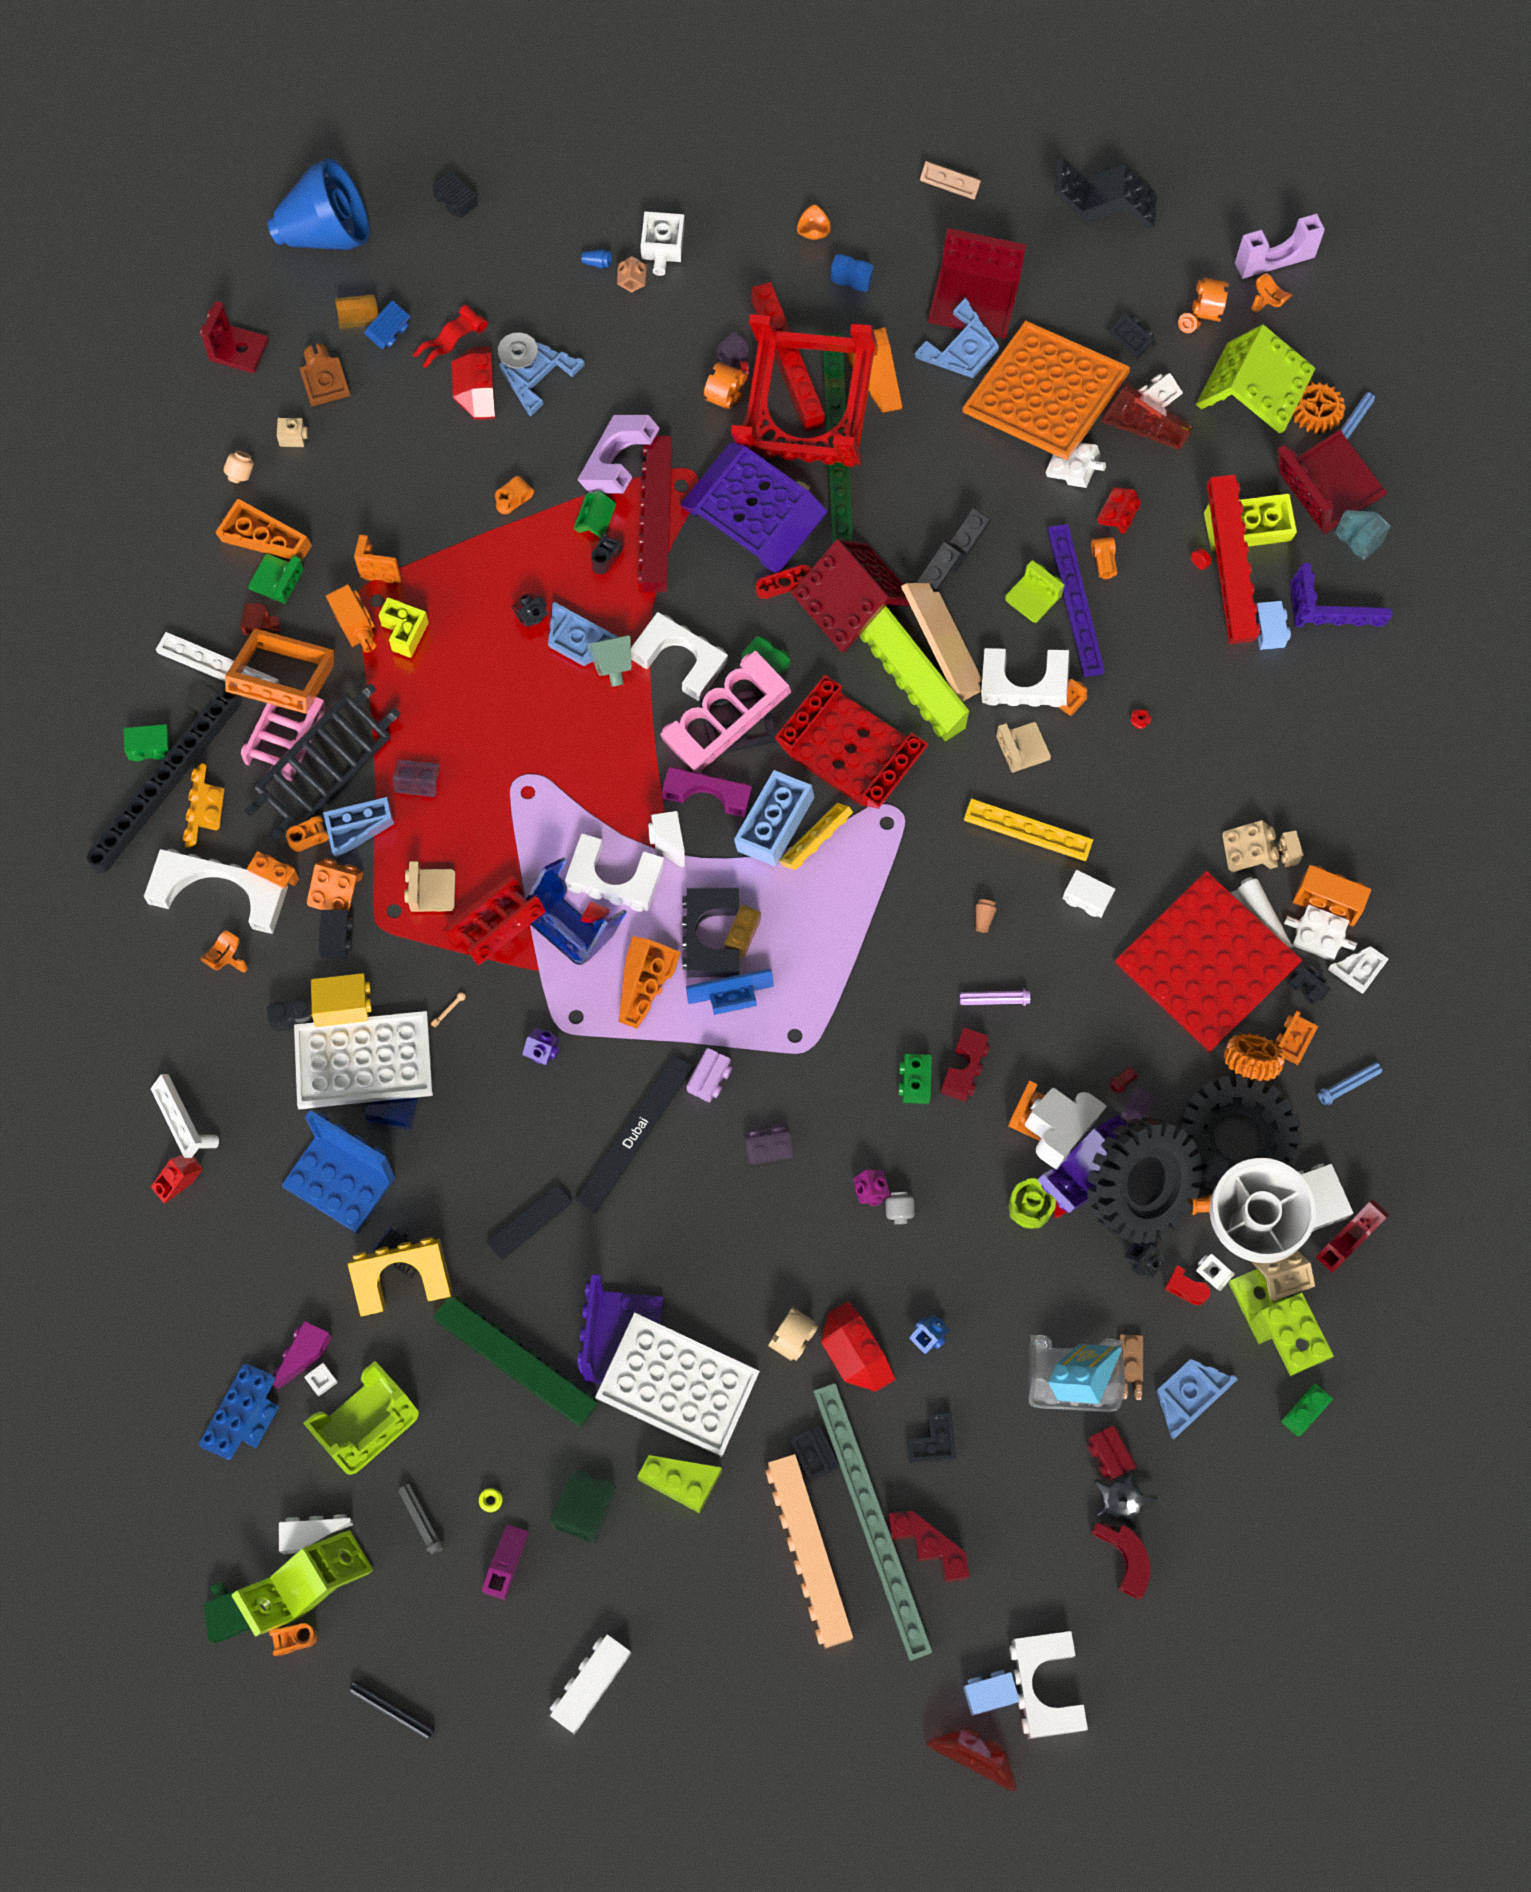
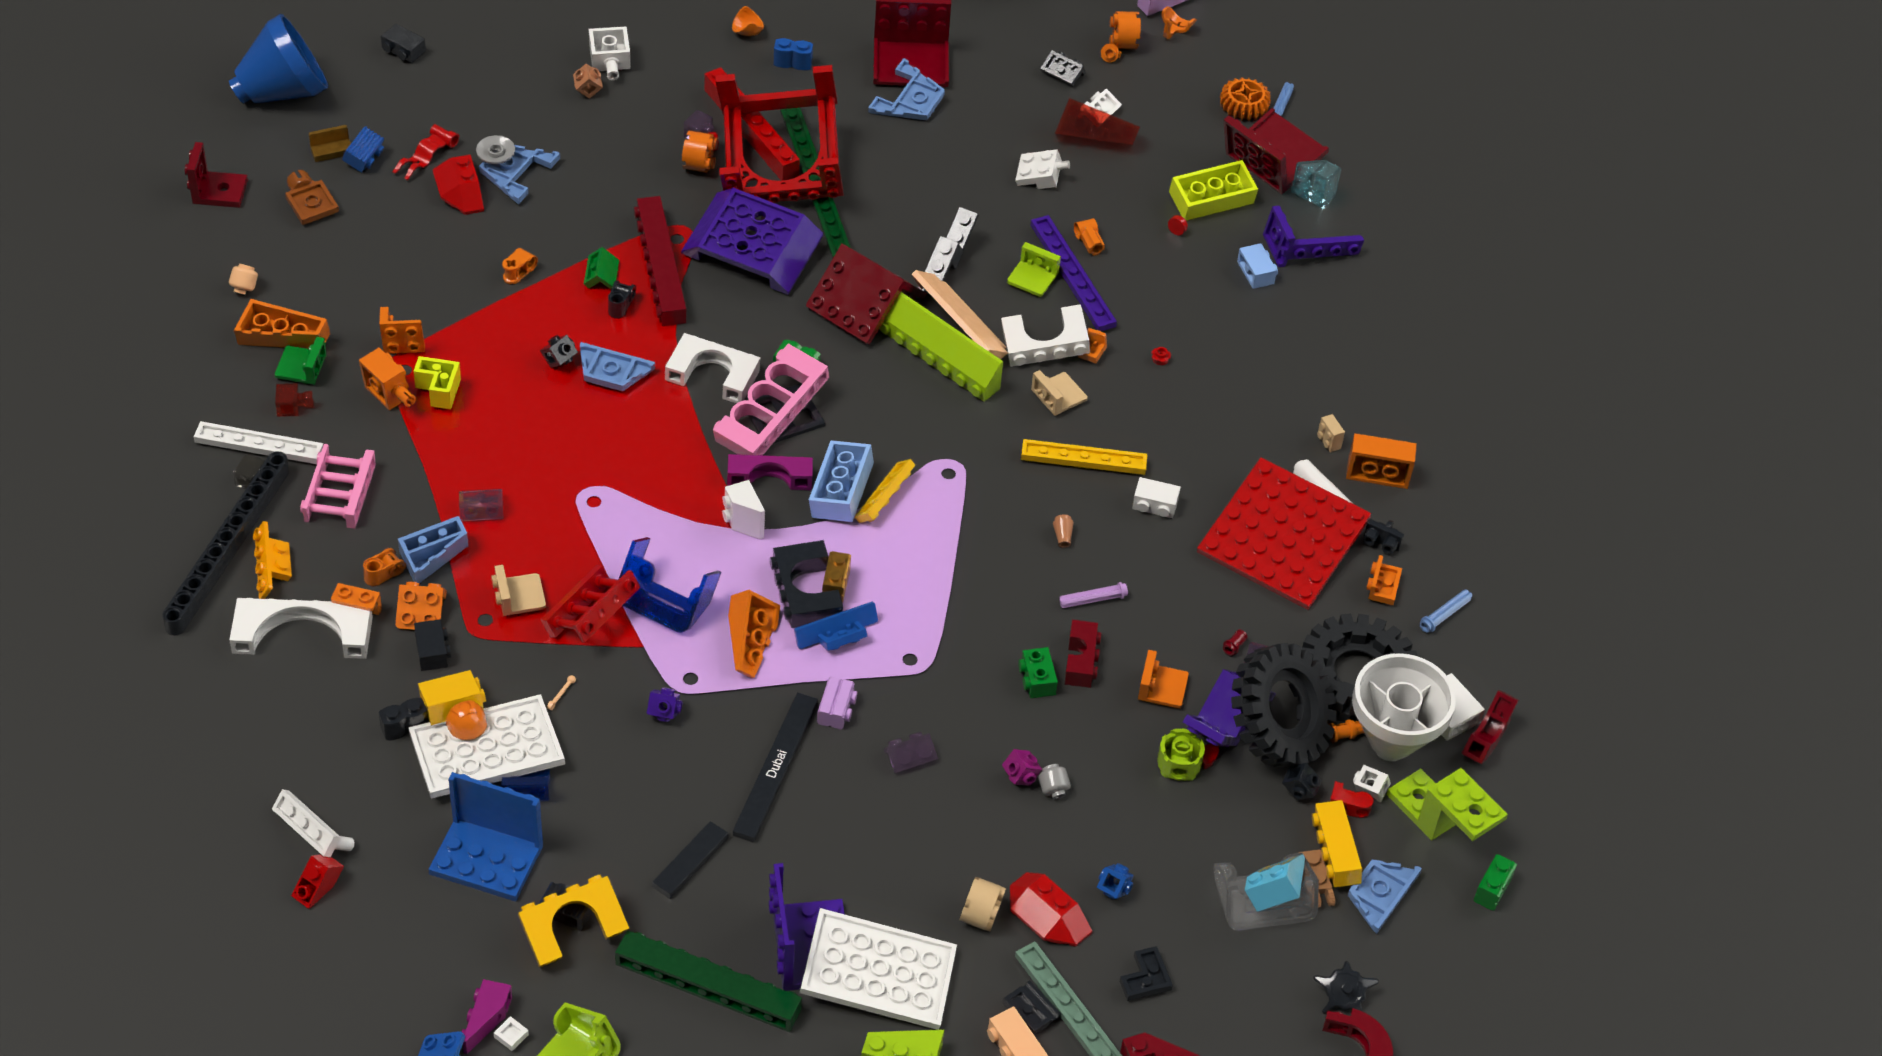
camera: 15 degrees left, 20 degrees down
(147, 742) = (201, 514): green brick -> none
(223, 942) = (320, 668): orange helmet -> none
(273, 692) = (321, 445): orange window -> none
(291, 432) = (289, 245): tan brick -> none
(303, 742) = (363, 485): black bar -> none
(349, 1032) = (466, 720): none -> orange helmet
(594, 912) = (686, 586): red tile -> none
(597, 258) = (552, 74): blue cone -> none
(612, 658) = (649, 376): sand green torso -> none
(619, 434) = (600, 227): lavender arch -> none
(635, 893) = (671, 560): white arch -> none
(768, 582) = (784, 303): red beam -> none
(828, 724) = (869, 403): red slope -> none
(883, 379) = (848, 135): orange wedge -> none
(1046, 390) = (998, 116): orange plate -> none
(1062, 1123) = (1189, 679): white brick -> none
(1111, 1454) = (1320, 952): dark red brick -> none
(1120, 509) = (1092, 198): red bracket -> none
(1160, 1336) = (1337, 843): none -> yellow brick
(1232, 559) = (1208, 216): red brick -> none
(1250, 846) = (1293, 437): tan bracket -> none
(1254, 1057) = (1352, 598): orange gear -> none
(1261, 375) = (1190, 73): lime bracket -> none
(1287, 1275) = (1436, 766): tan bracket -> none
(1320, 933) = (1380, 496): white plate -> none
(1360, 968) = (1424, 518): white wing -> none

